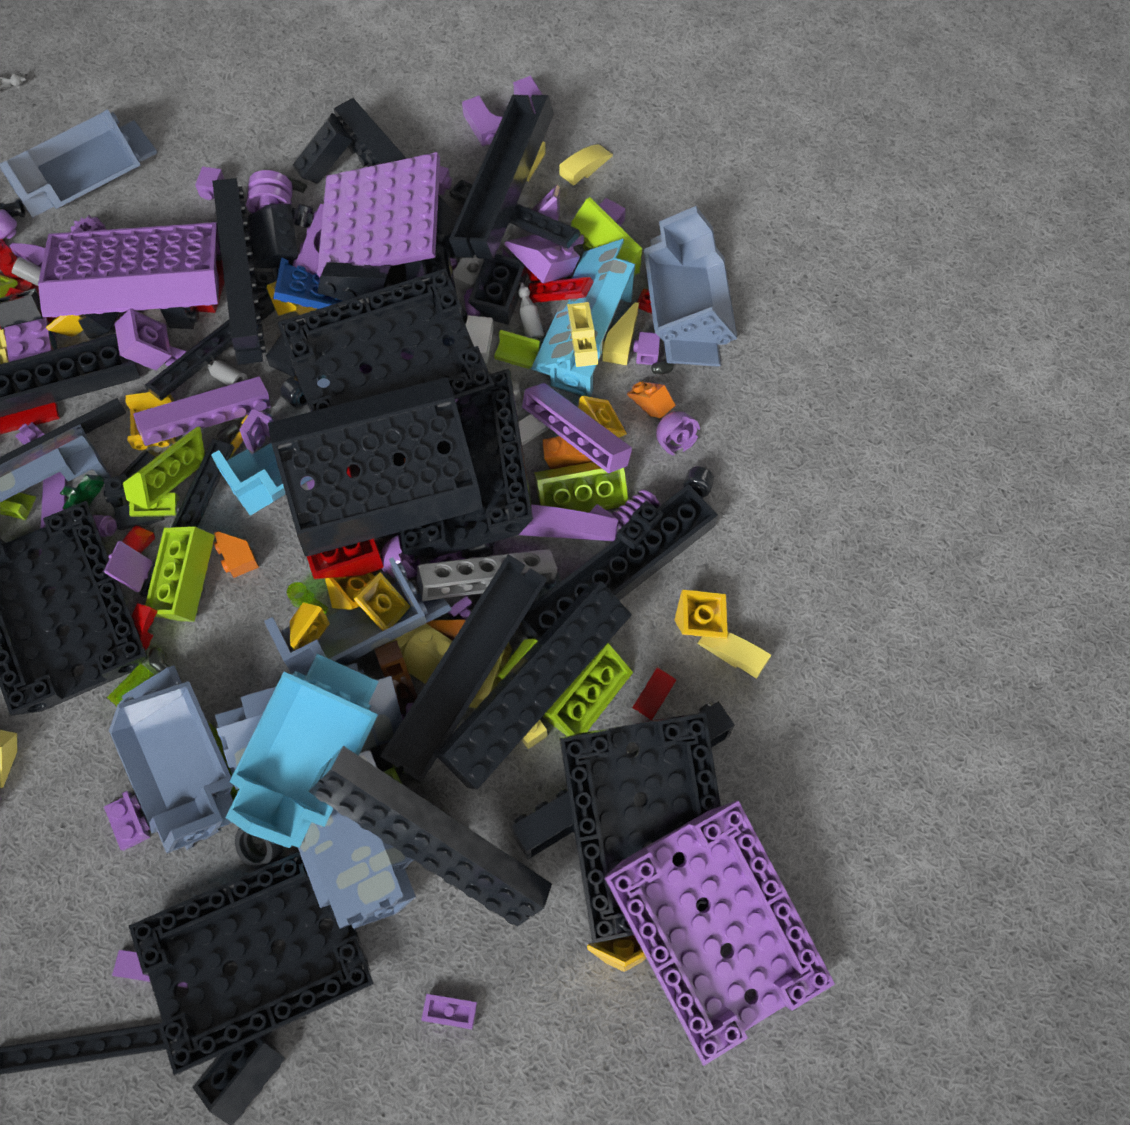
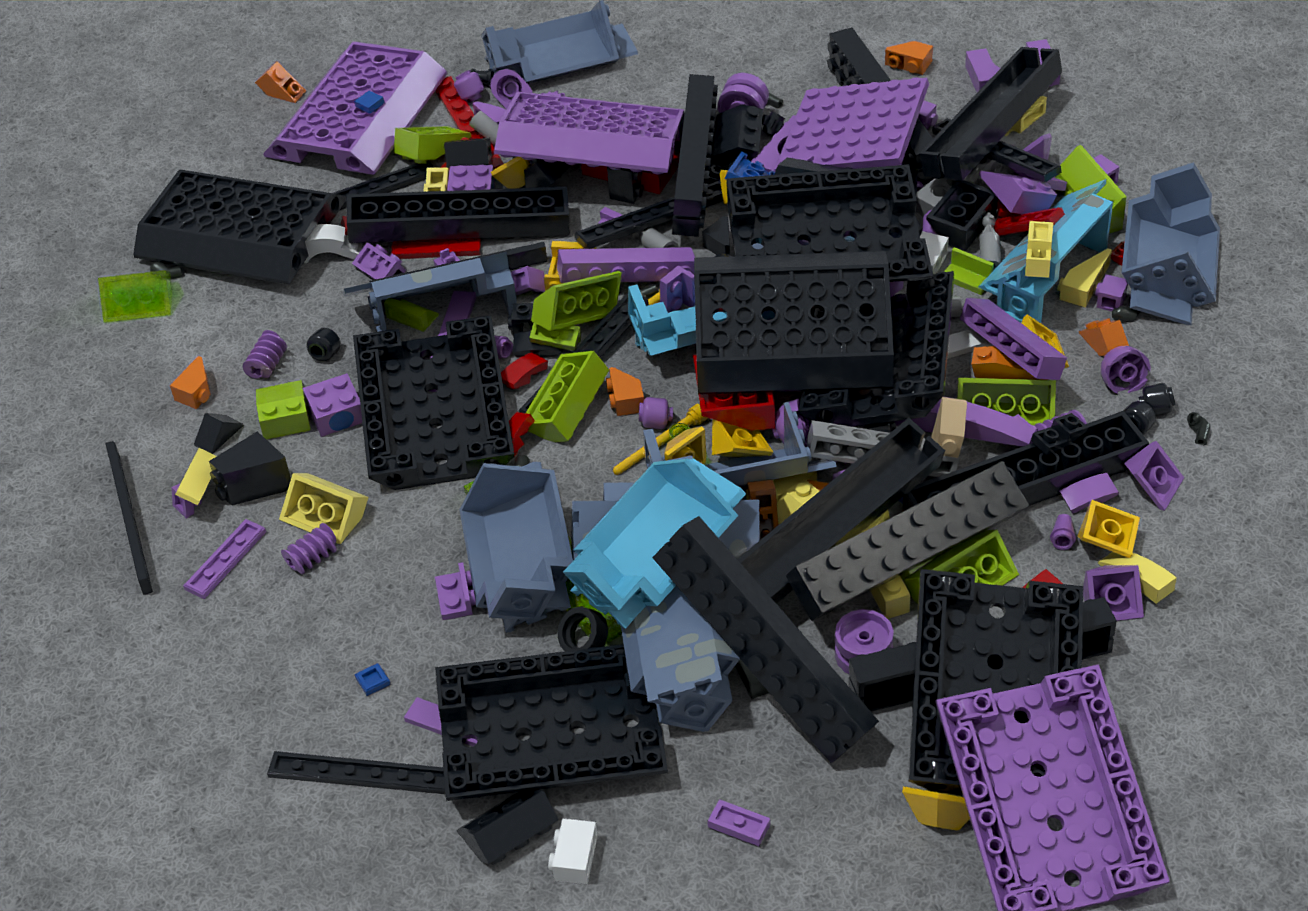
camera: 20 degrees right, 20 degrees down
(39, 216) = (506, 84): none -> medium lavender piece
(71, 938) = (372, 679): none -> blue tile
(86, 490) = (496, 306): dark green plate -> none
(112, 444) = (527, 280): none -> medium lavender panel
(128, 566) = (516, 379): medium lavender piece -> none
(142, 339) = (583, 194): medium lavender brick -> none
(204, 181) = (679, 83): medium lavender brick -> none
(268, 572) = (655, 413): none -> medium lavender head
(279, 600) = (692, 417): none -> yellow piece
(307, 1087) = (574, 851): none -> white brick
(322, 150) = (808, 69): black slope -> none
(381, 602) = (761, 442): yellow slope -> none
(411, 114) = (909, 56): none -> orange slope
(515, 775) = (861, 633): none -> medium lavender wheel
(543, 544) = (950, 425): none -> tan slope
(583, 163) = (1084, 124): light yellow slope -> none
(661, 621) = (1063, 533): none -> medium lavender cone
(675, 571) = (1096, 488): none -> medium lavender slope
(711, 456) = (1159, 398): none -> black head
(719, 677) = (1120, 588): none -> medium lavender slope
(727, 541) = (1155, 474): none -> medium lavender slope
(753, 477) = (1200, 427): none -> pearl dark grey arm

